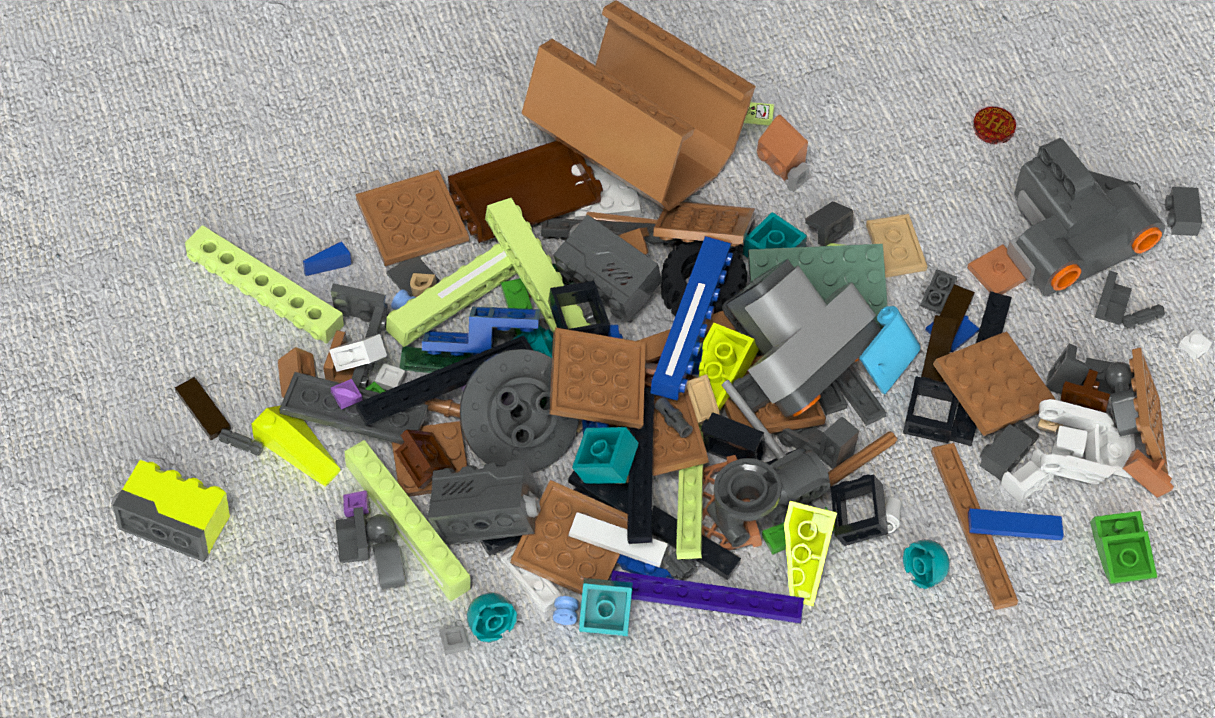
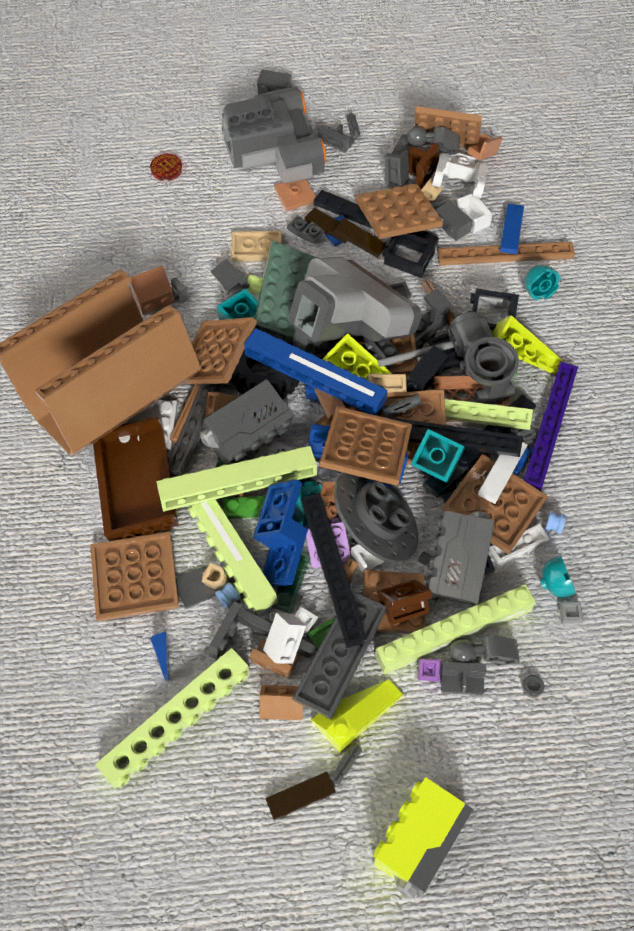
camera: 75 degrees left, 5 degrees up
(346, 394) = (329, 654): medium lavender tile -> none
(356, 608) = (533, 686): none -> dark grey tile
(583, 293) = (292, 435): black window -> none
(605, 607) = (563, 489): teal brick -> none
(890, 350) = (348, 252): medium azure door -> none
(1069, 442) = (462, 182): white panel -> none
(1123, 547) = (537, 177): bright green slope -> none
(1195, 344) = (380, 106): white plate -> none

